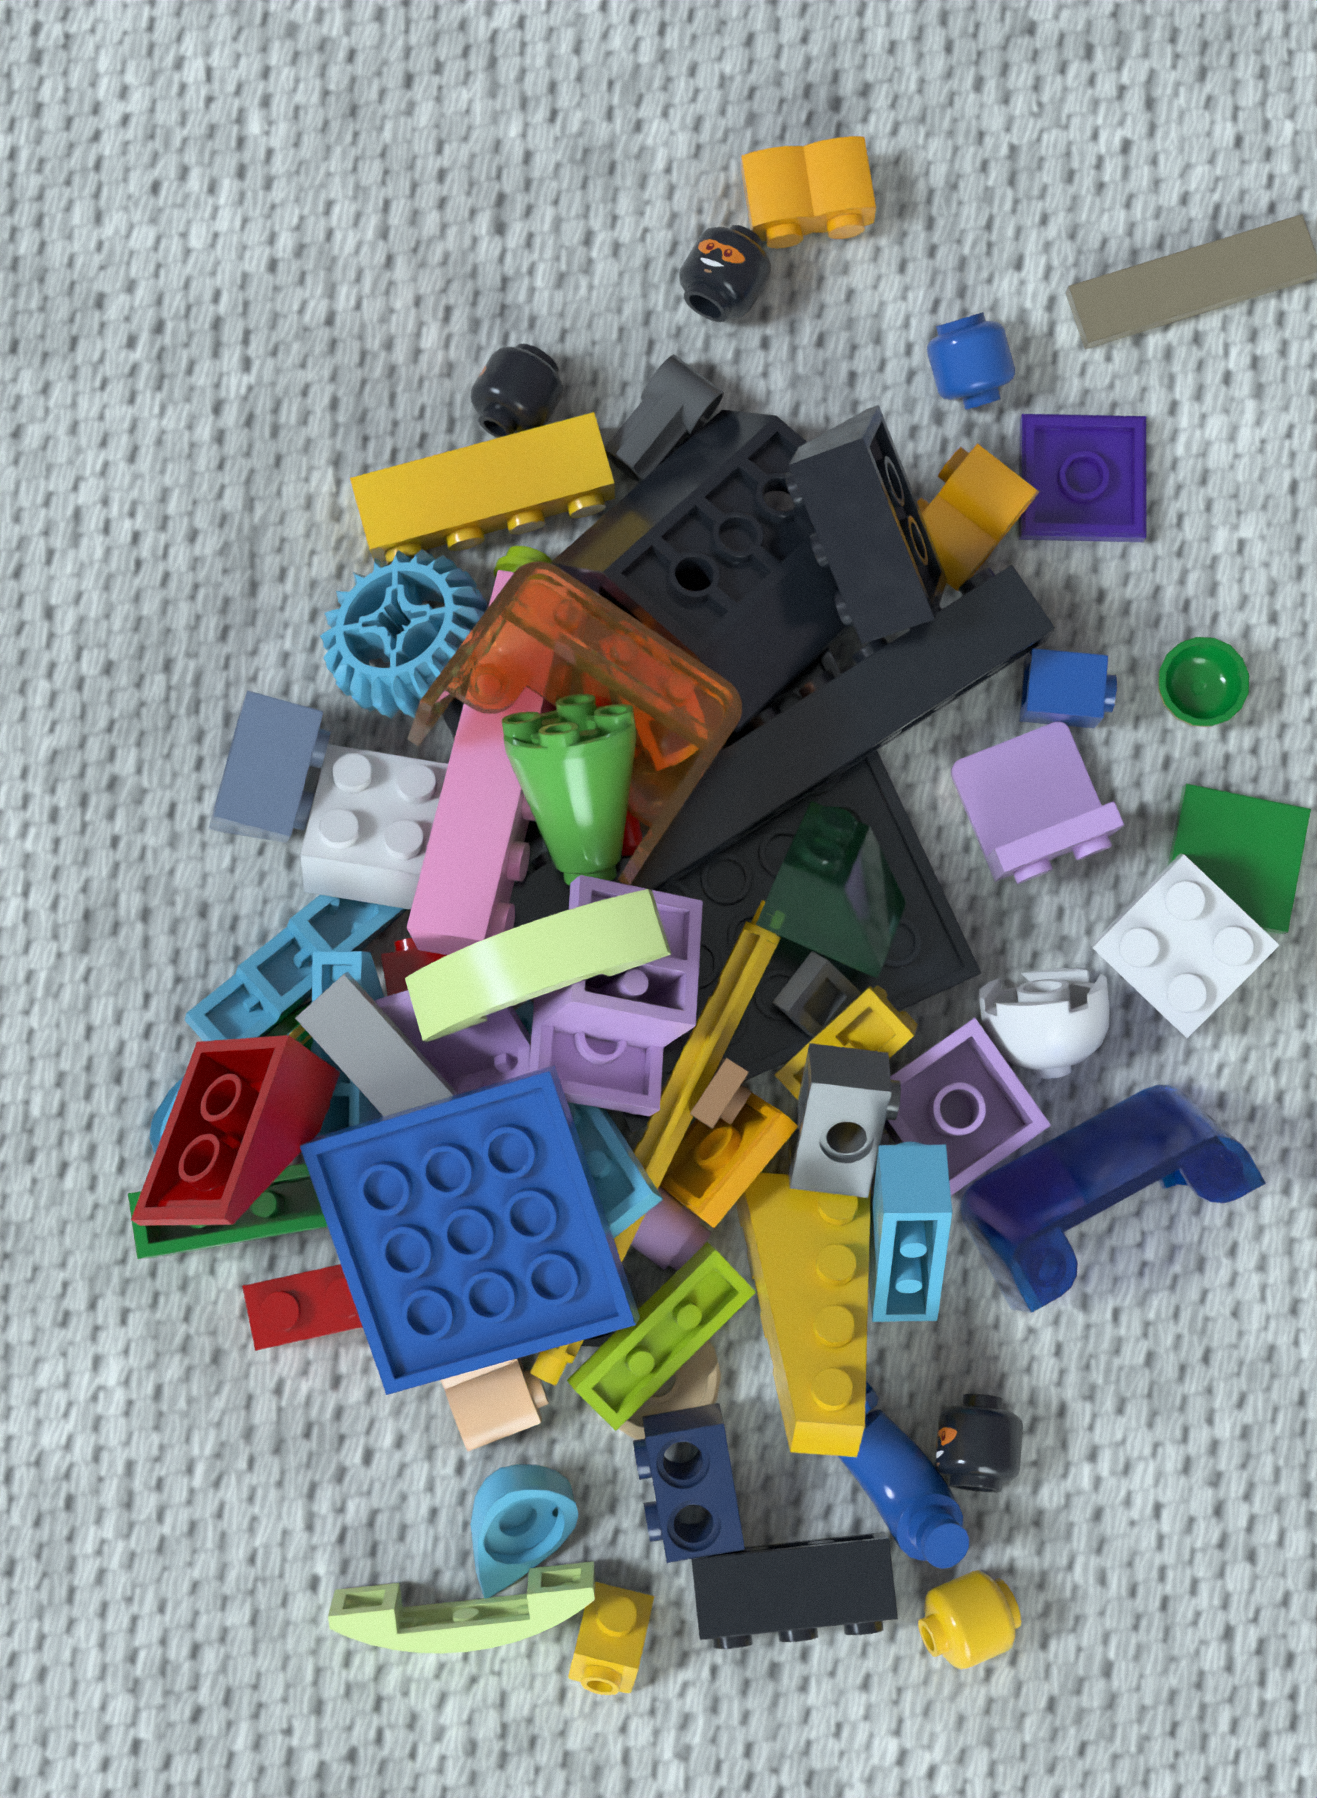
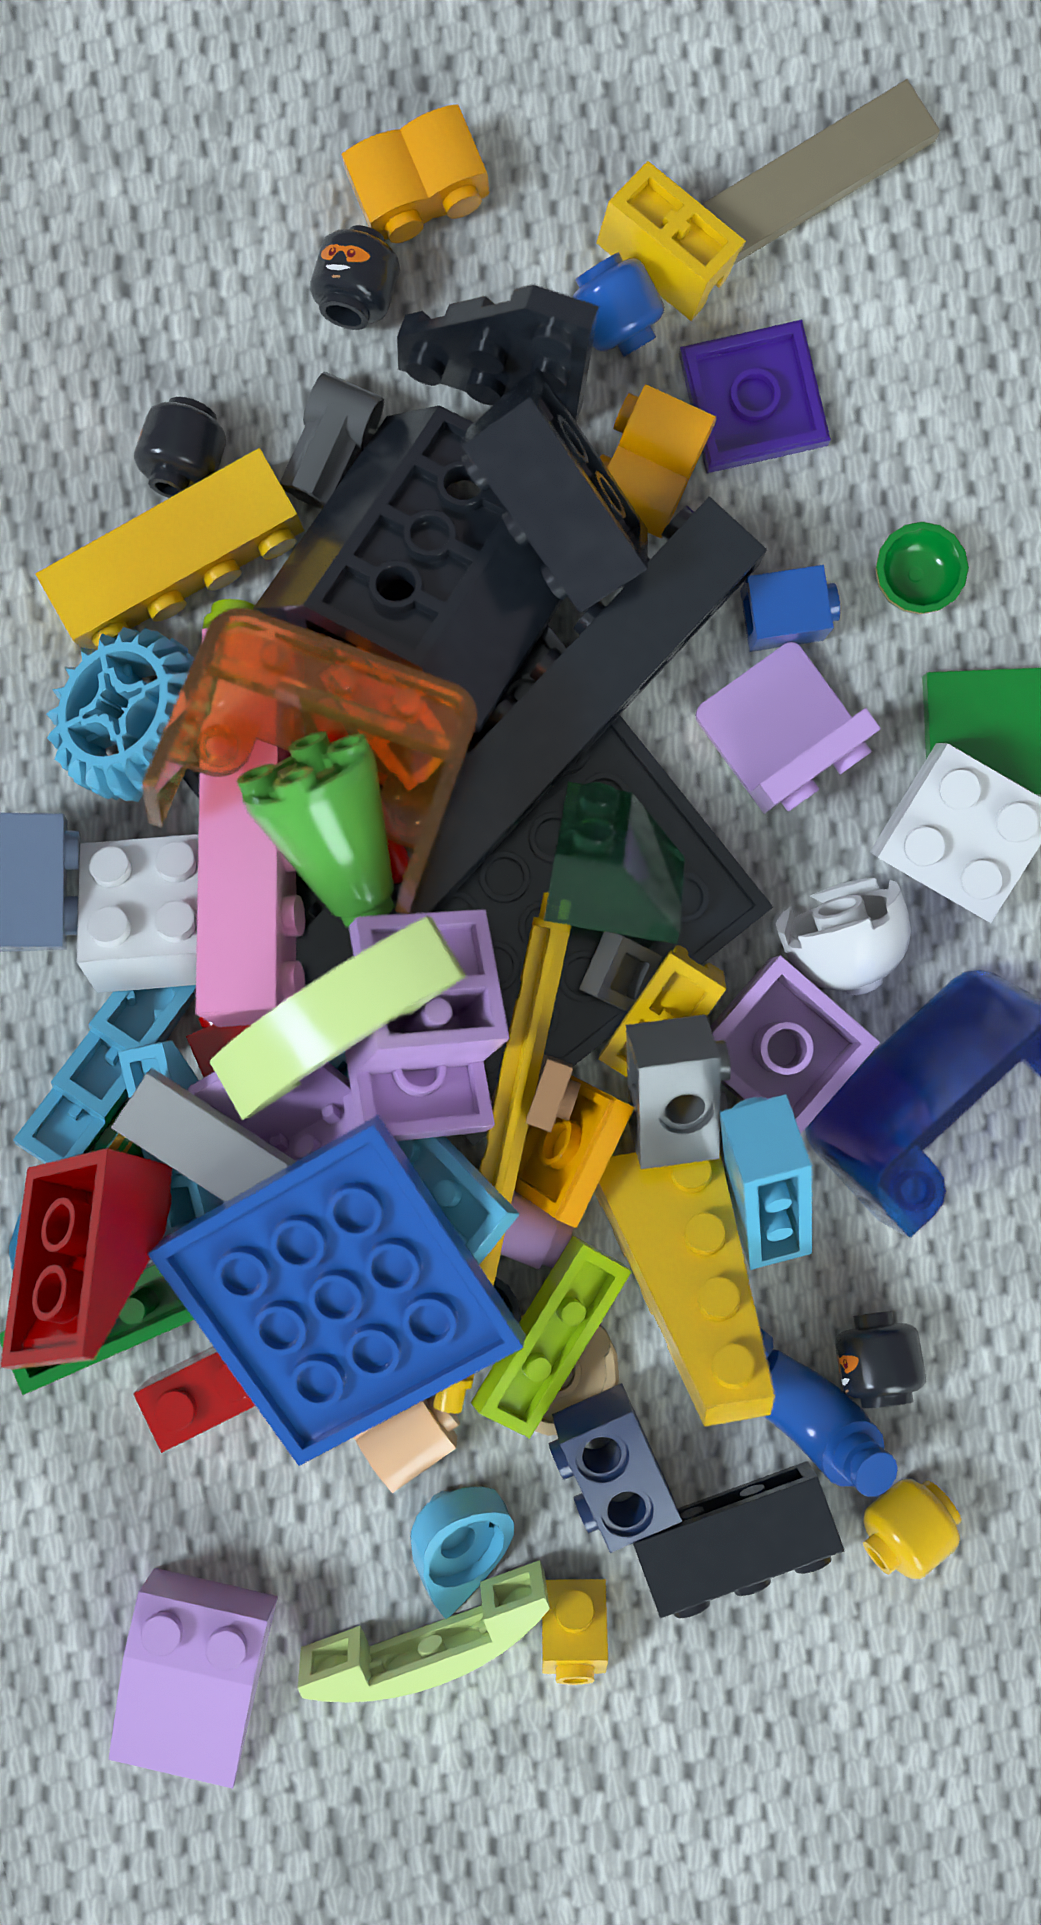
camera: 10 degrees left, 5 degrees up
(218, 1592) = (190, 1676): none -> lavender slope
(848, 376) = (493, 346): none -> black plate
(1038, 309) = (672, 236): none -> yellow hinge

